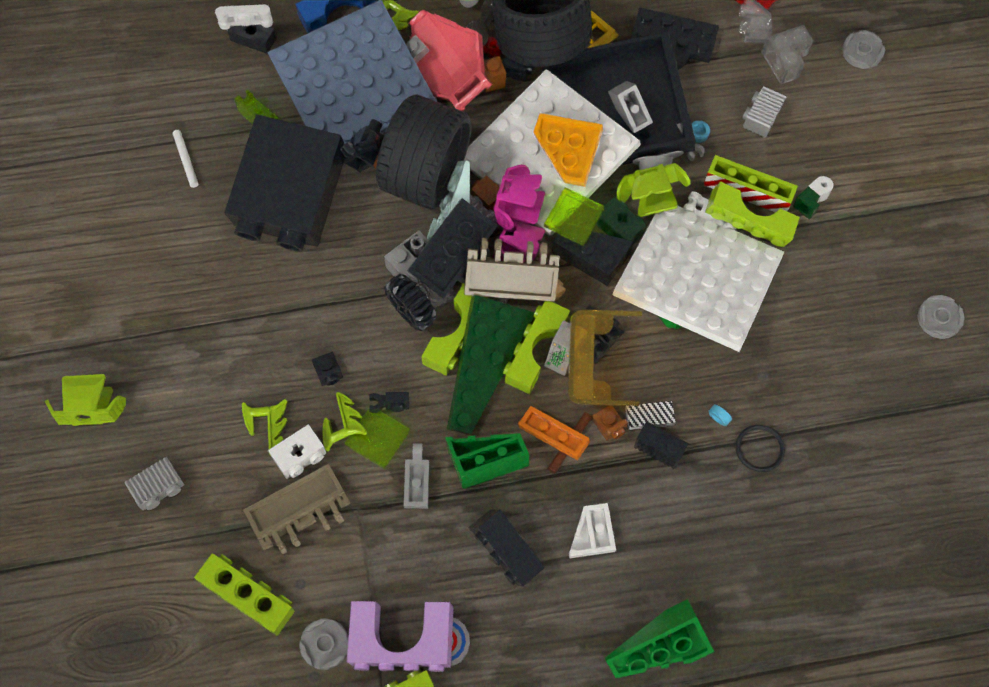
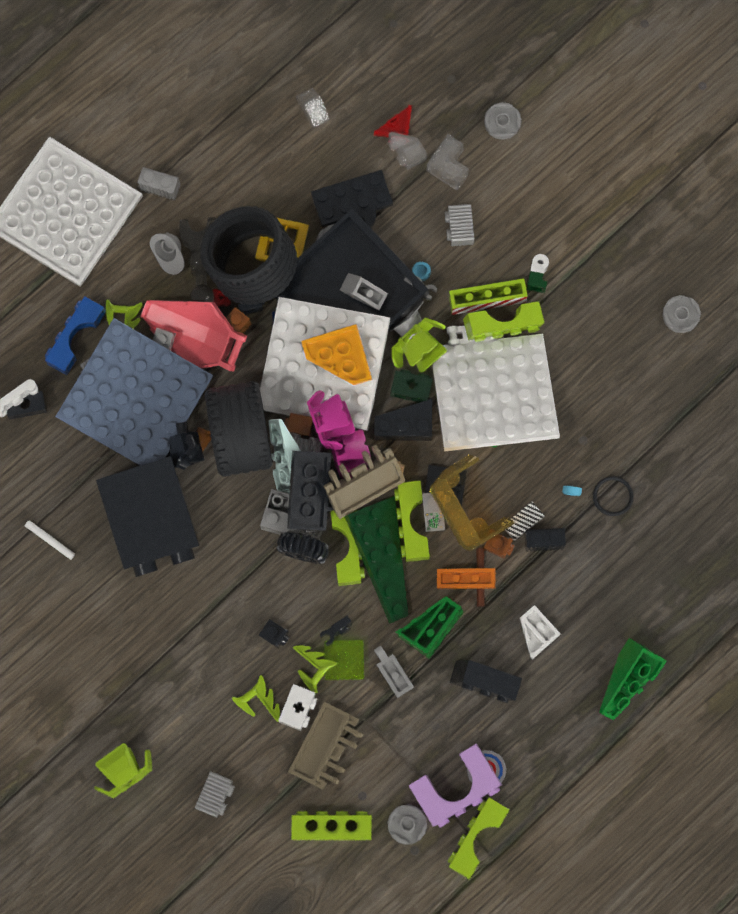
camera: 30 degrees left, 10 degrees up
(251, 106) = (79, 468): clear neon green hinge -> none
(574, 216) = (379, 408): clear neon green tile -> none

